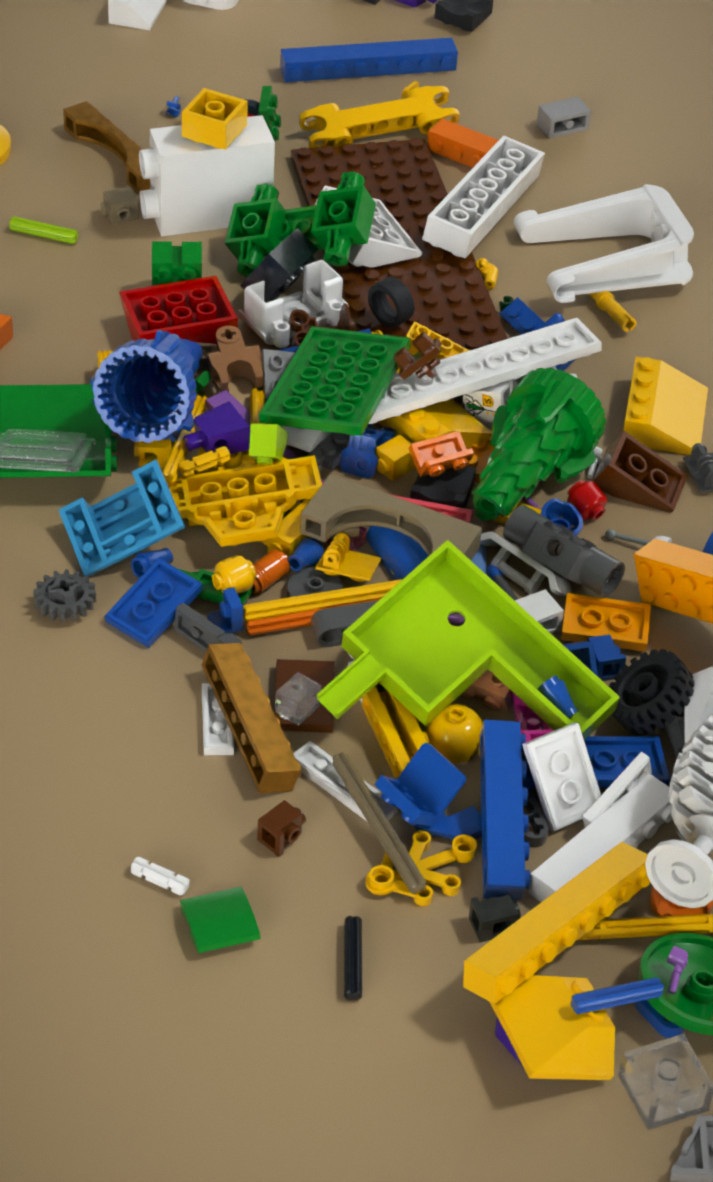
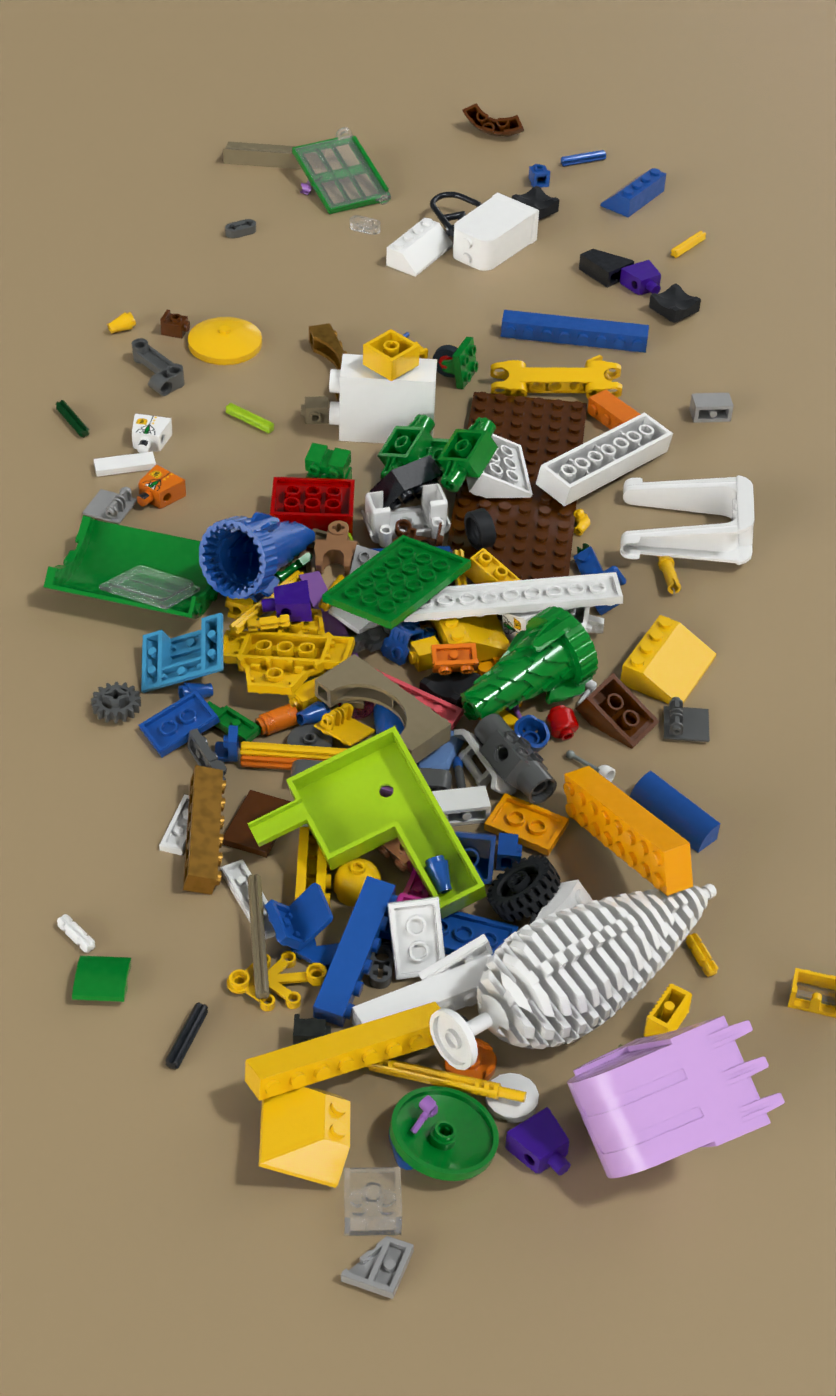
camera: 20 degrees right, 0 degrees up
(235, 573) = (245, 716): yellow head -> none
(267, 443) = (319, 619): lime slope -> none
(280, 827) = (183, 919): reddish brown brick -> none
(297, 698) = (237, 823): clear brick -> none
(421, 360) = (472, 571): reddish brown hips -> none
(617, 995) = (357, 1121): blue axle -> none

